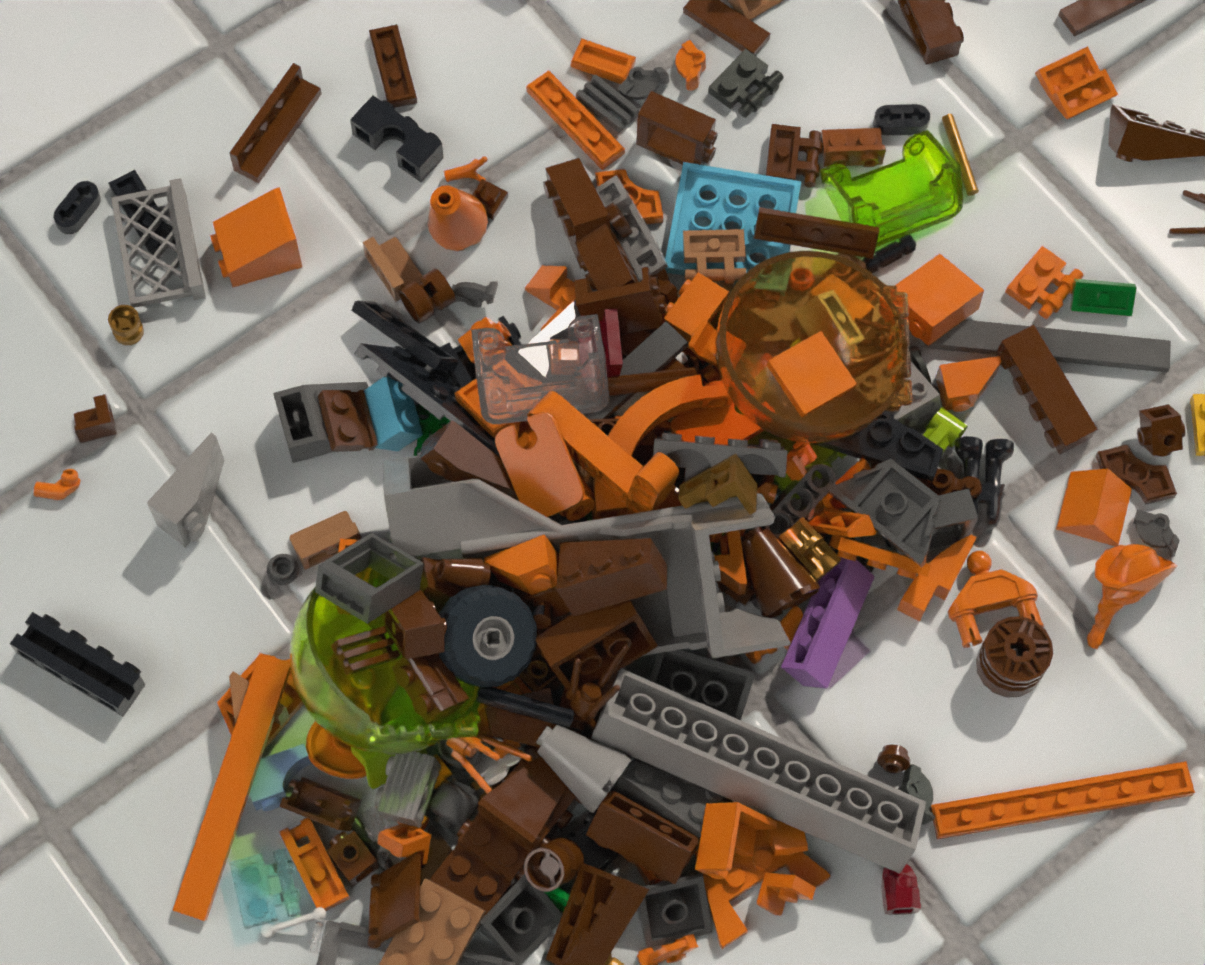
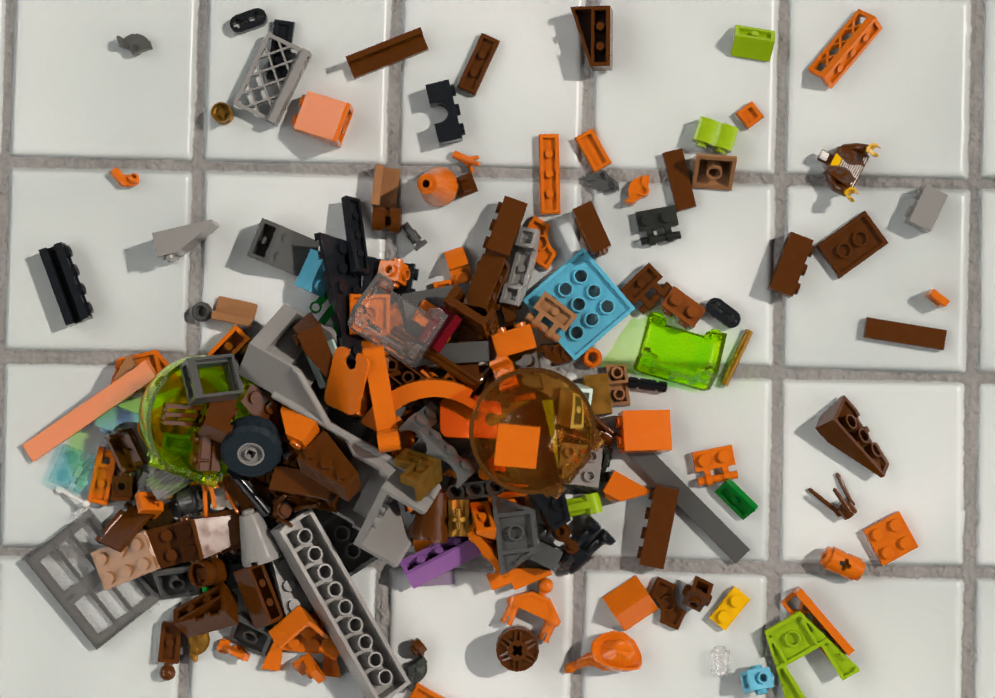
camera: 45 degrees right, 20 degrees up
(95, 422) = (168, 155): reddish brown panel -> none
(347, 420) = (289, 261): reddish brown plate -> none
(464, 572) = (265, 409): reddish brown cone -> none
(590, 88) = (571, 161): dark grey tile -> none
(618, 220) = (517, 255): reddish brown tile -> none
(816, 232) = (614, 347): reddish brown tile -> none
(1076, 83) = (836, 366): orange slope -> none
(1155, 531) = (648, 640): dark grey piece -> none

